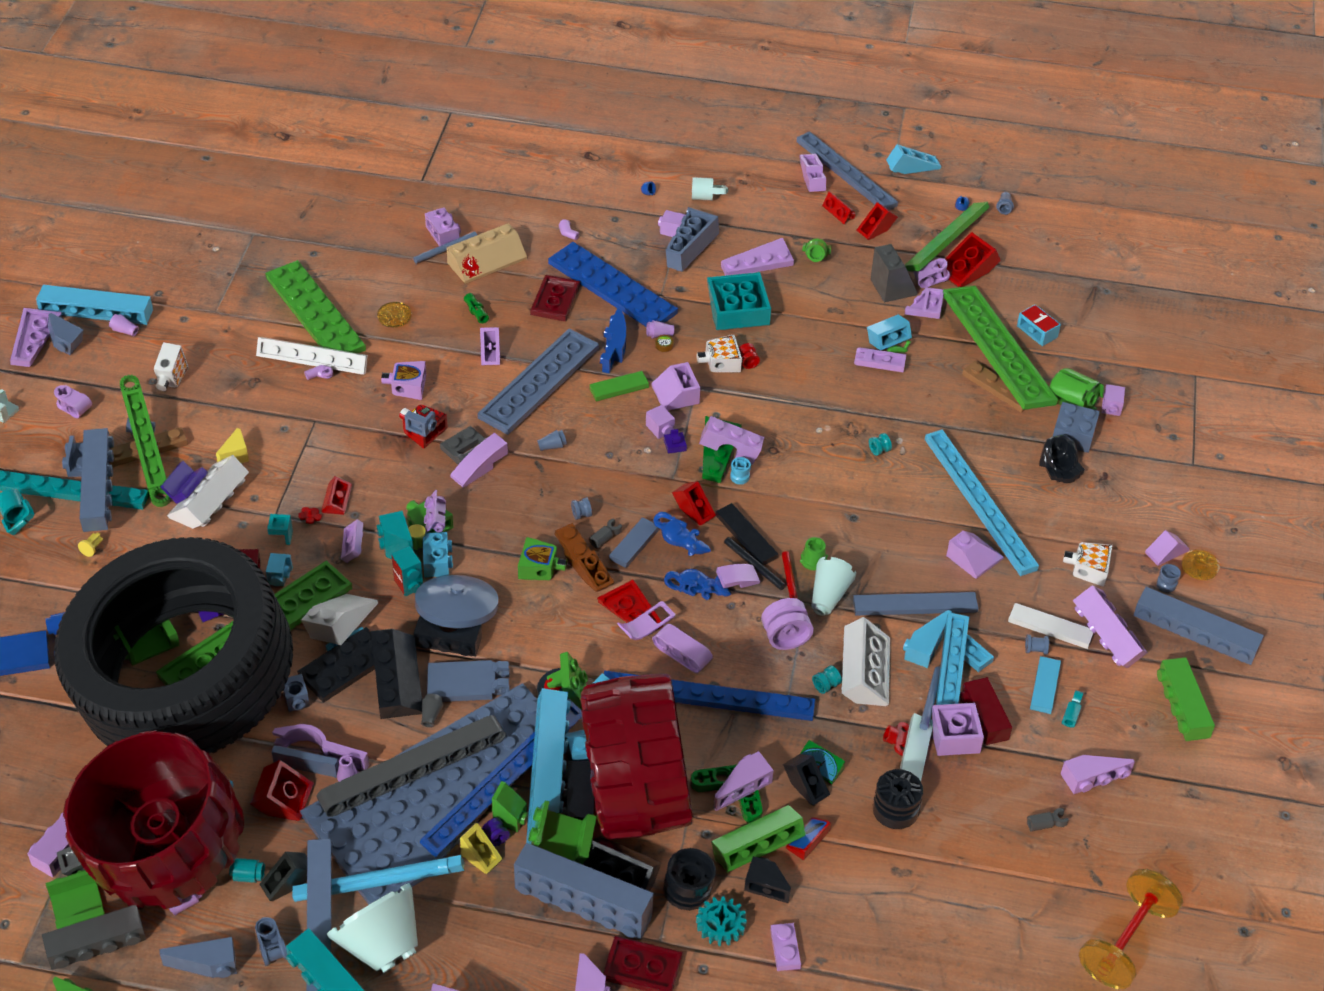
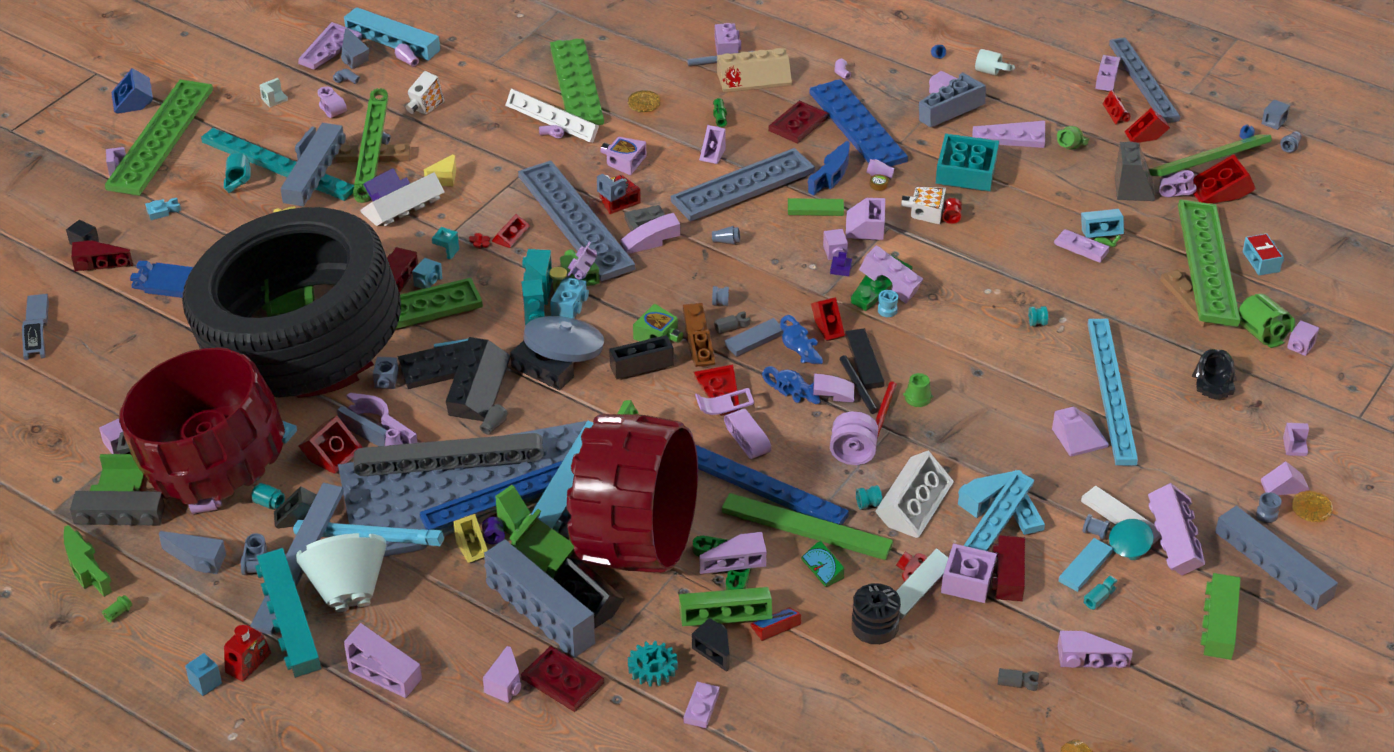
camera: 25 degrees right, 5 degrees down
(69, 364) = (345, 74): none -> sand blue arm
(337, 618) = (451, 324): white slope -> none
(352, 541) = (504, 266): lavender plate -> none
(394, 462) = (575, 218): none -> sand blue plate
(468, 680) = (540, 405): sand blue tile -> none
(542, 598) = (641, 357): none -> black brick
(689, 879) = (639, 617): black wheel -> none
(784, 727) = (807, 526): none -> bright green tile
(806, 778) = (801, 573): black slope -> none
(830, 584) = (917, 418): light aqua cone -> none
(911, 161) = (1212, 83): medium azure slope -> none
(915, 603) = (995, 459): sand blue tile -> none
(927, 304) = (1157, 210): lavender wing -> none
(930, 700) = (942, 557): sand blue bar -> none
(979, 179) = (1275, 114): none -> sand blue brick
(1072, 646) = (1131, 538): none -> teal dish
(1077, 424) = (1250, 350): sand blue brick -> none
(1090, 562) = (1194, 471): white torso -> none
(1154, 503) = (1295, 439): none -> lavender panel

